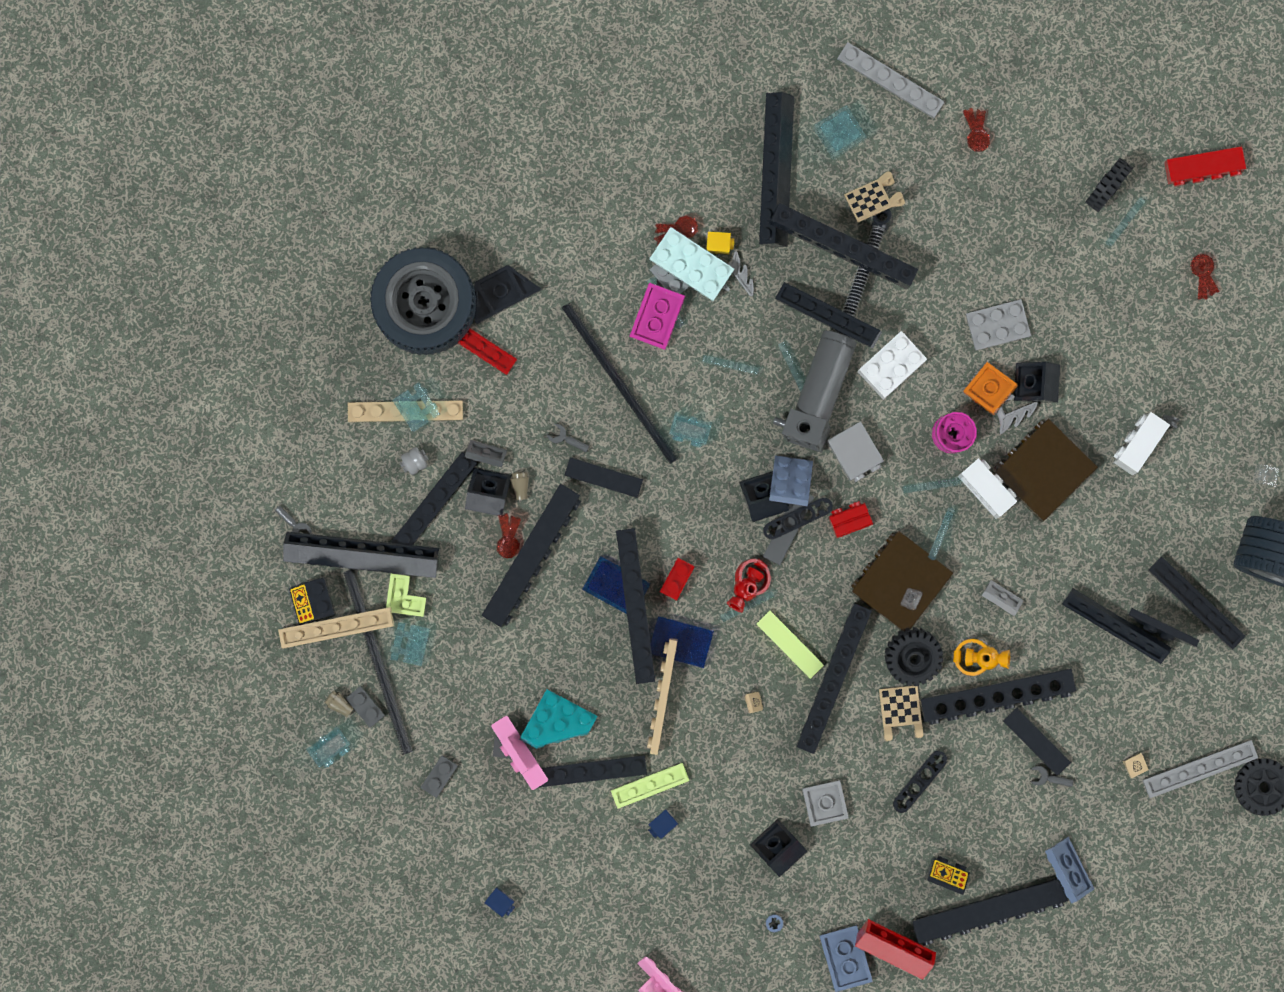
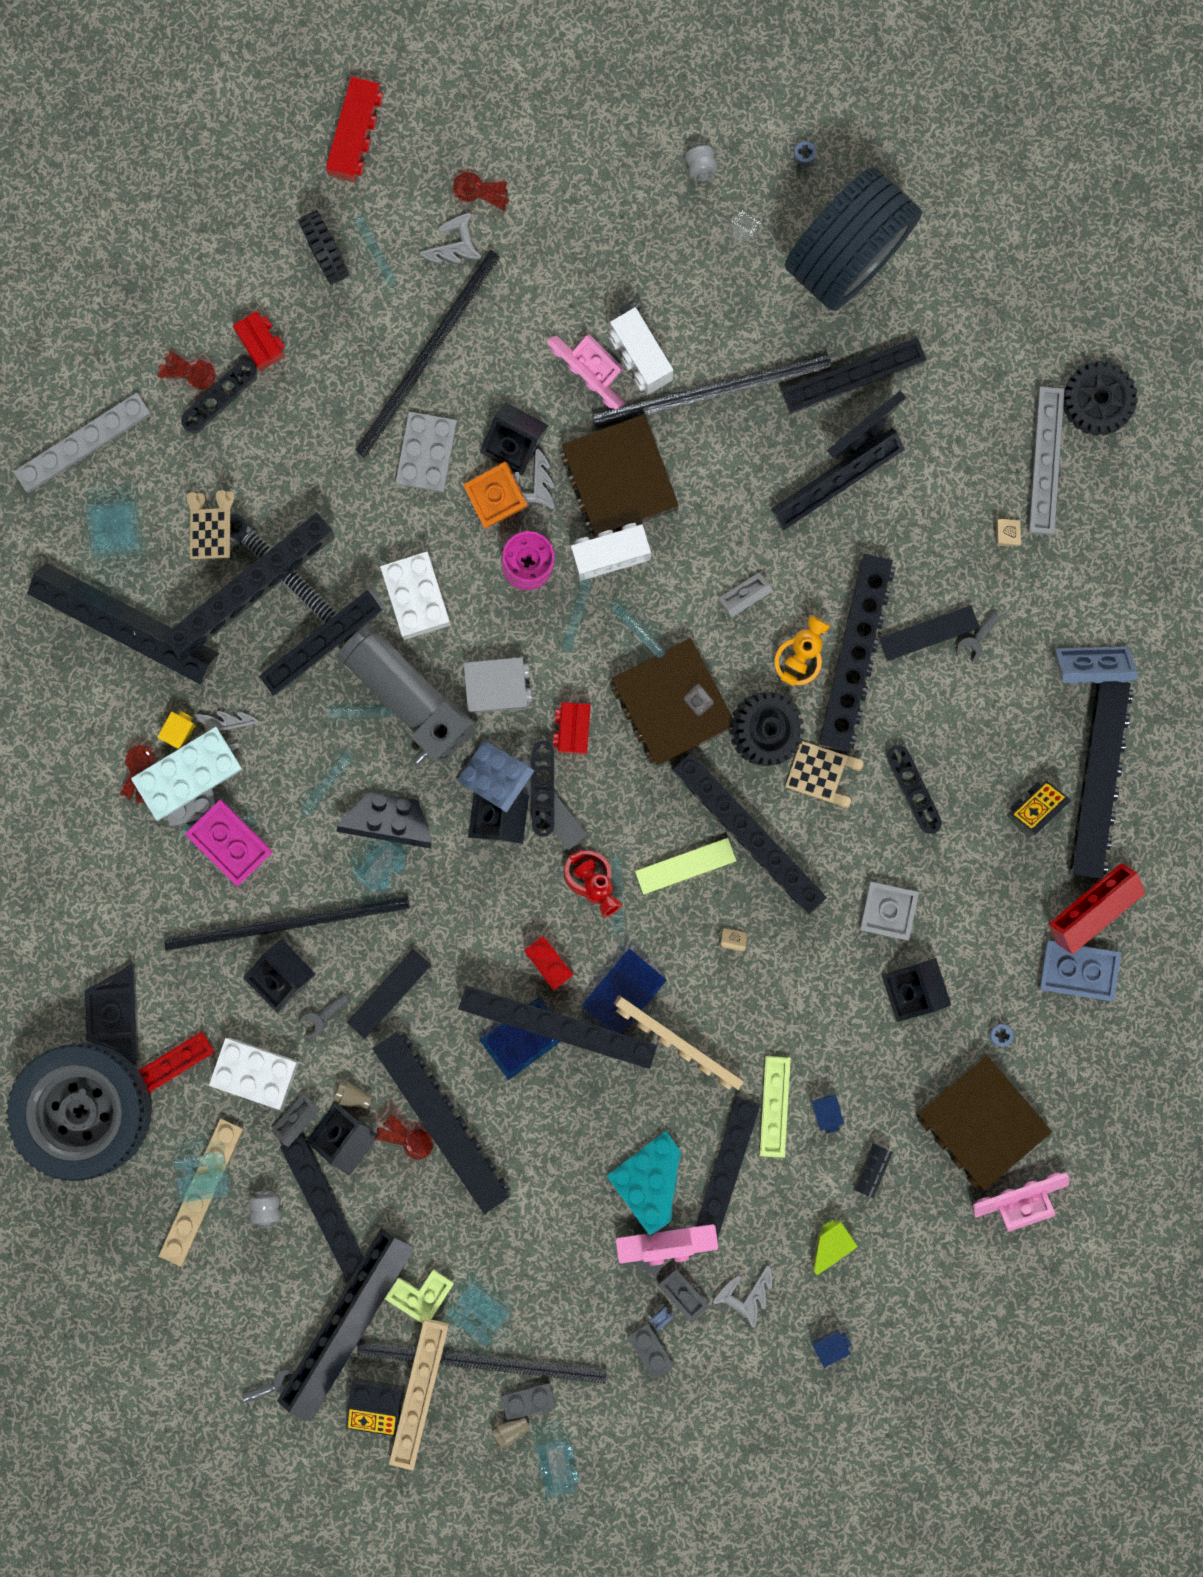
camera: 65 degrees left, 0 degrees up
(465, 773) = (661, 1318): none -> sand blue bush
(488, 781) = (683, 1295): none -> dark grey plate
(500, 831) = (749, 1307): none -> light grey piece
(504, 409) = (254, 1073): none -> white brick
(571, 870) = (832, 1245): none -> lime slope
(580, 395) = (279, 975): none -> black slope
(637, 875) = (873, 1170): none -> black axle
(706, 938) = (983, 1123): none -> dark brown brick
(725, 419) = (387, 819): none -> black wing
(969, 158) = (216, 393): none -> black beam
(1021, 169) = (258, 340): none -> red brick
(1067, 292) = (427, 353): none -> black axle
(1116, 413) = (593, 365): none -> bright pink bracket
(1153, 525) = (711, 390): none -> black axle
(1156, 283) = (463, 248): none -> light grey piece

